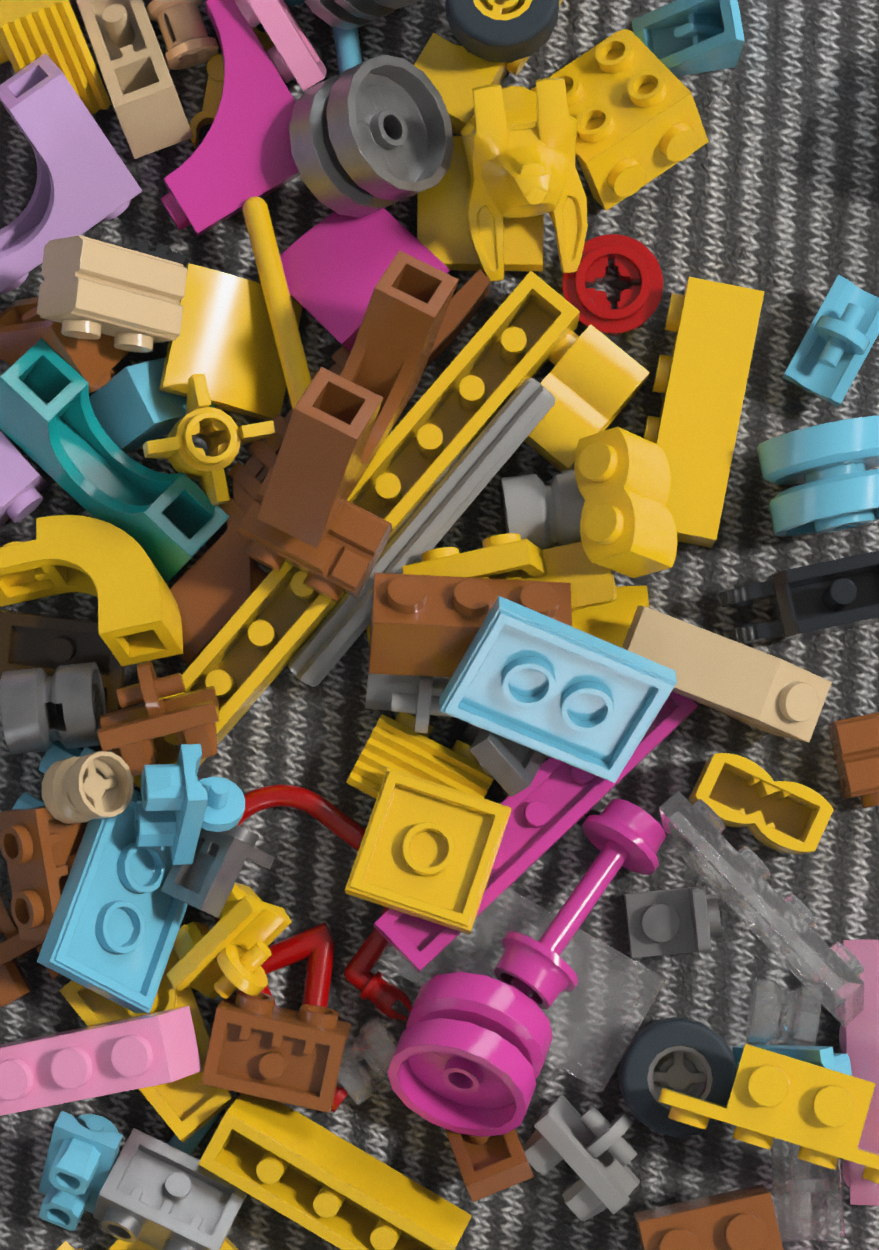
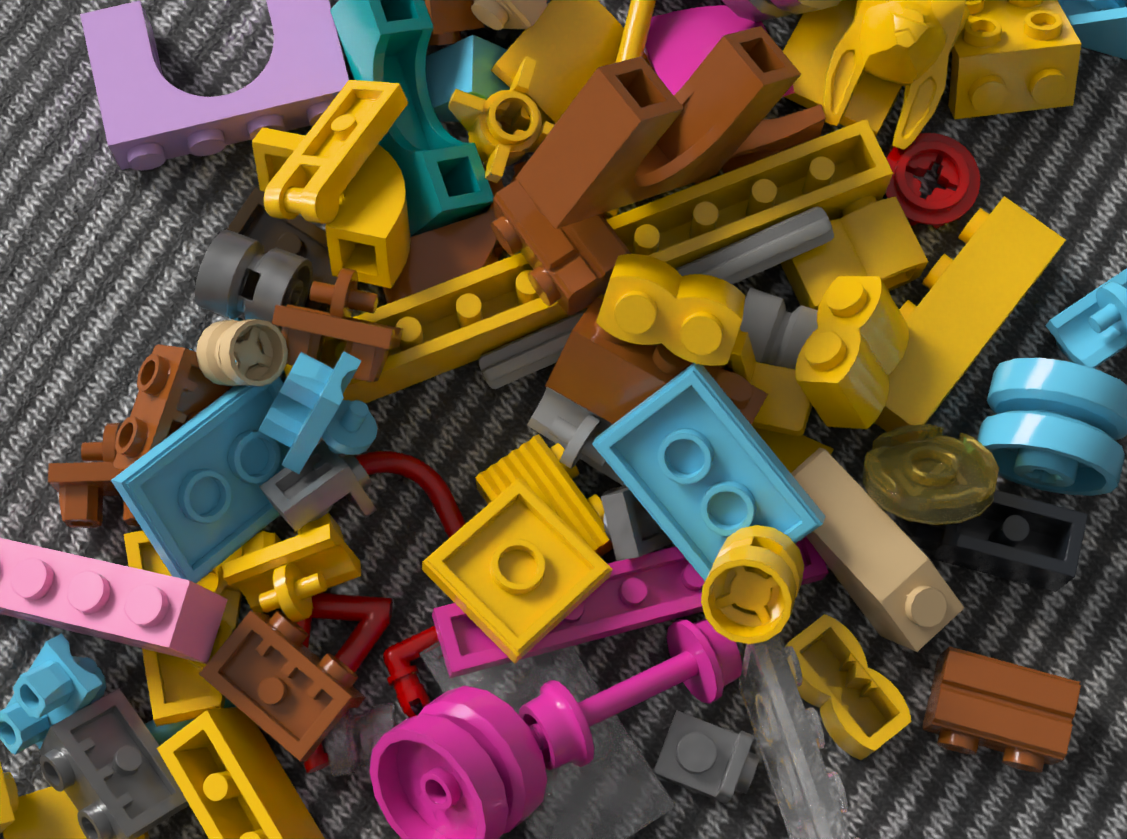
camera: 20 degrees right, 10 degrees down
(66, 553) = (334, 151): none -> yellow plate
(464, 559) = (688, 313): none -> yellow brick
(643, 767) = (753, 584): none -> yellow wheel
(747, 582) = (930, 475): none -> clear yellow tile

